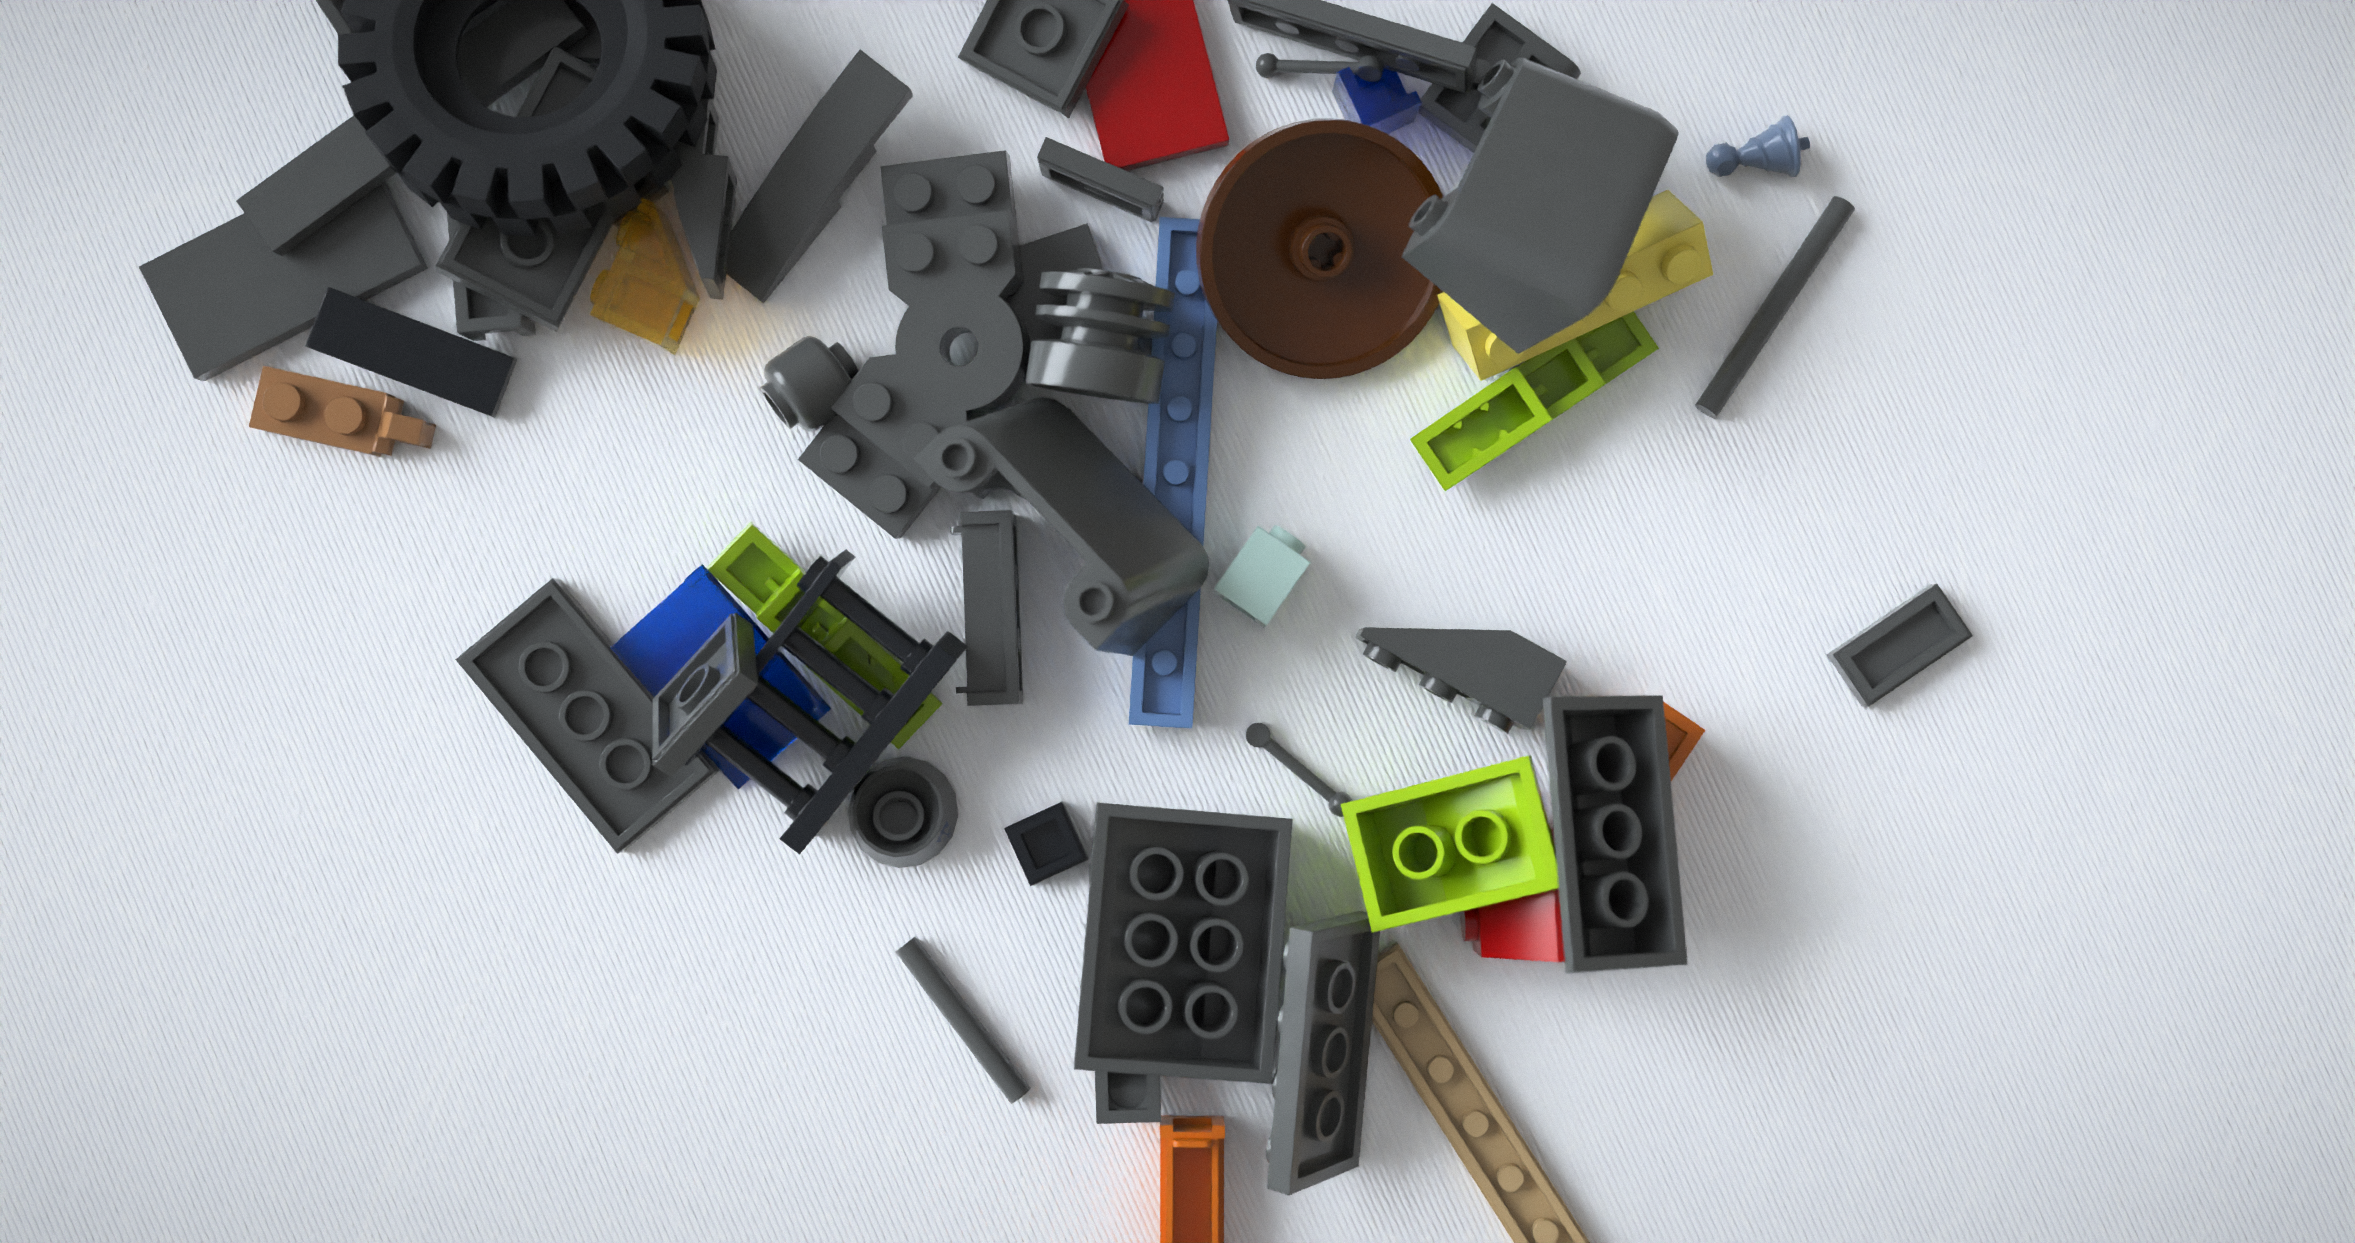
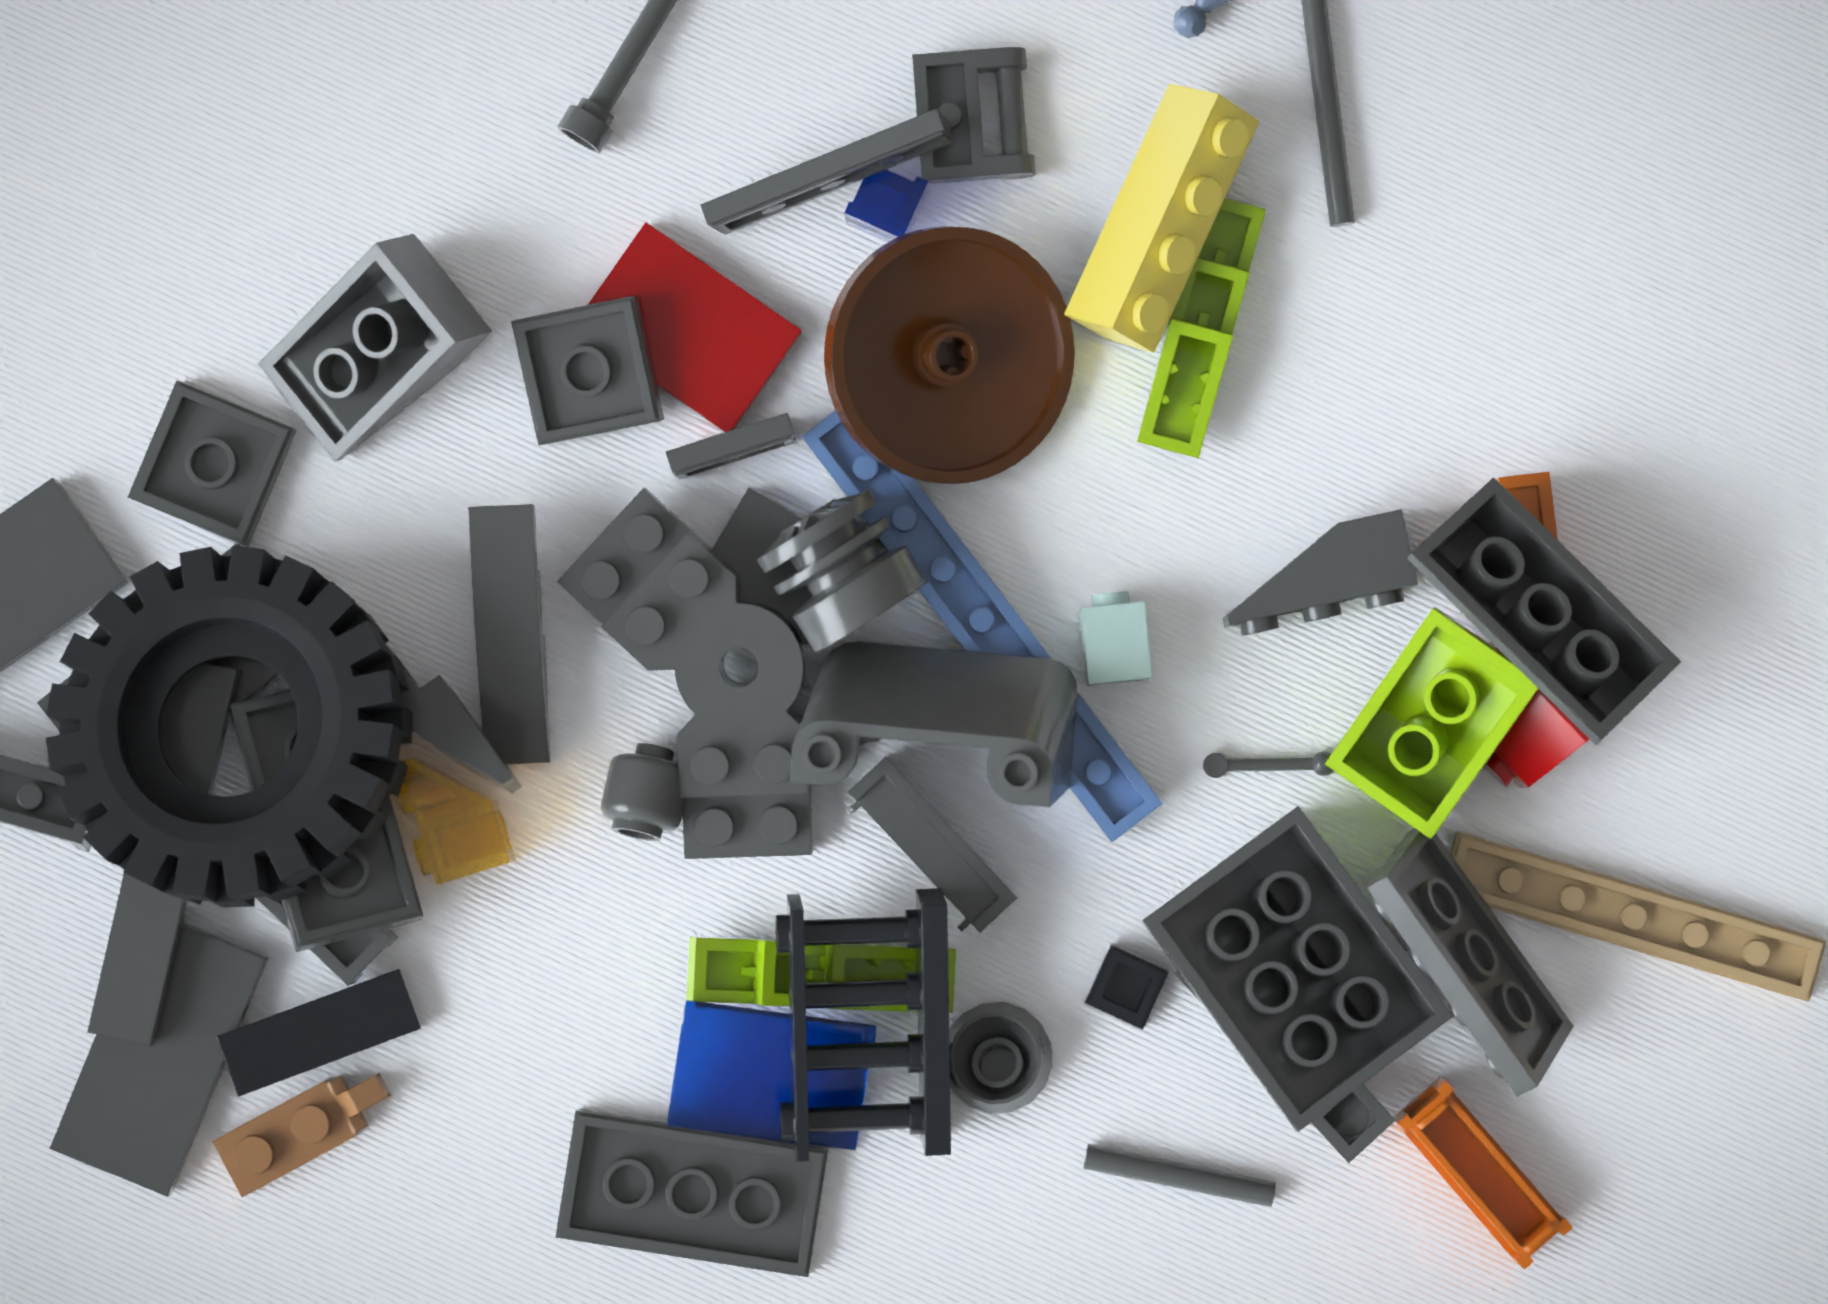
camera: 40 degrees left, 0 degrees up
(703, 694) = (777, 1094): dark grey tile -> none
(1368, 68) = (861, 187): dark grey hinge -> none
(1543, 202) = (1089, 184): dark grey windscreen -> none
(1899, 645) = (1641, 276): dark grey tile -> none

